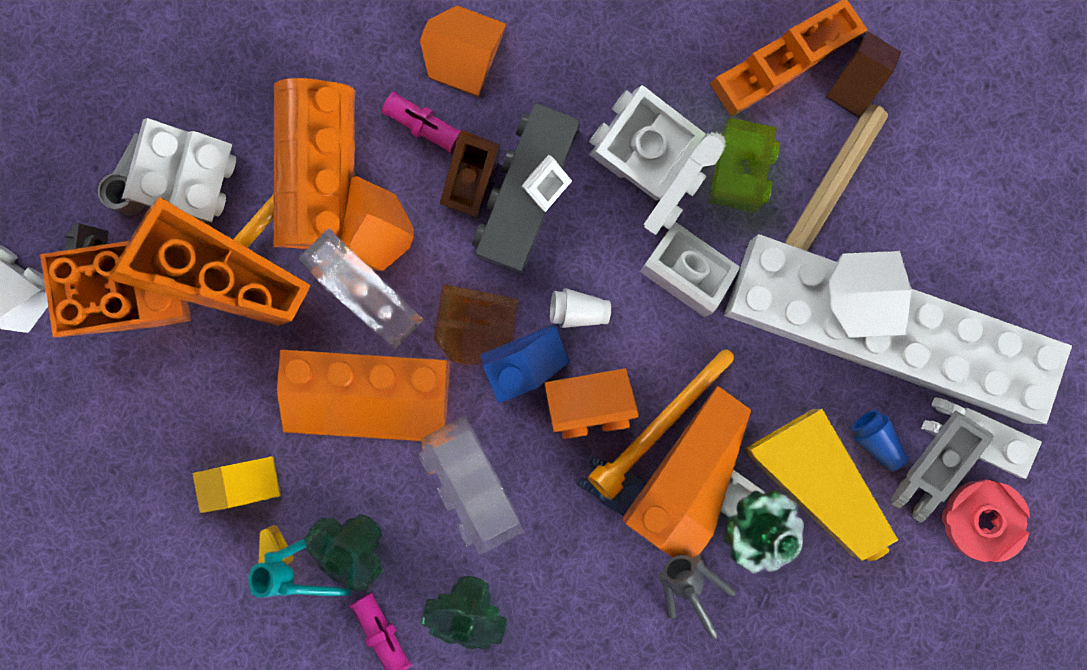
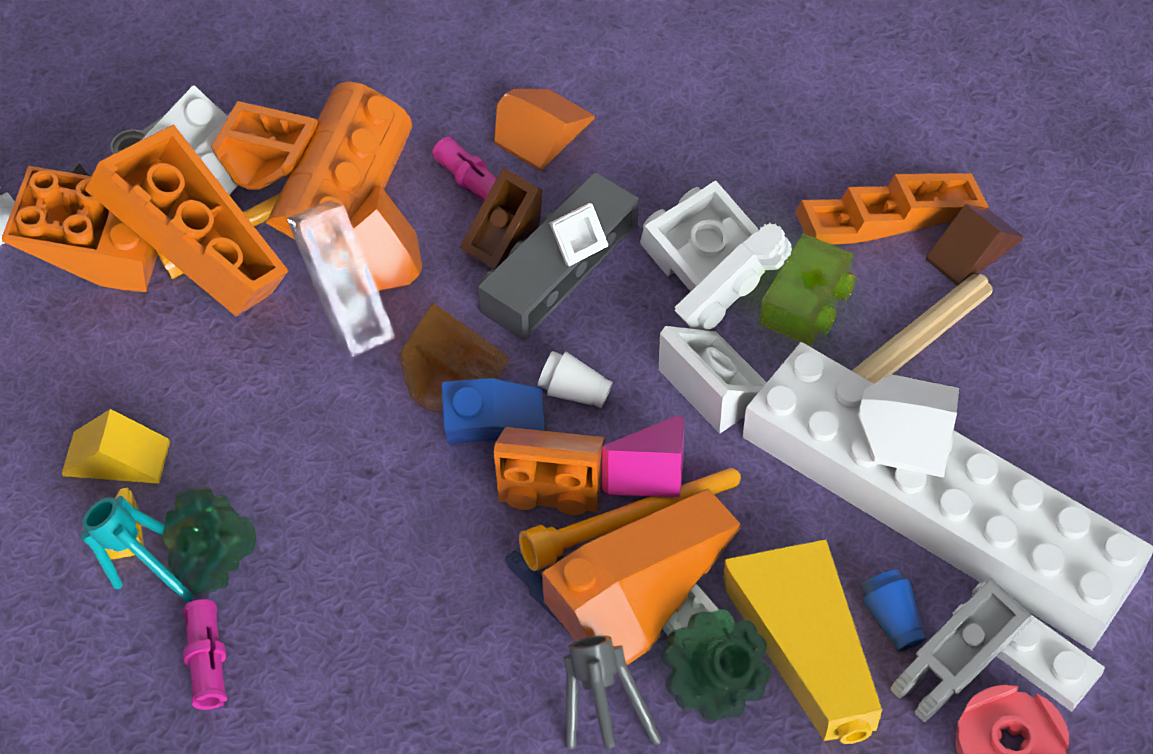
camera: 25 degrees right, 30 degrees down
(236, 163) = (262, 144): none -> orange slope
(362, 395) = (300, 397): orange slope -> none
(465, 615) = (311, 651): plant -> none
(470, 486) = (378, 512): clear brick -> none
(668, 378) = (646, 461): none -> dark pink slope

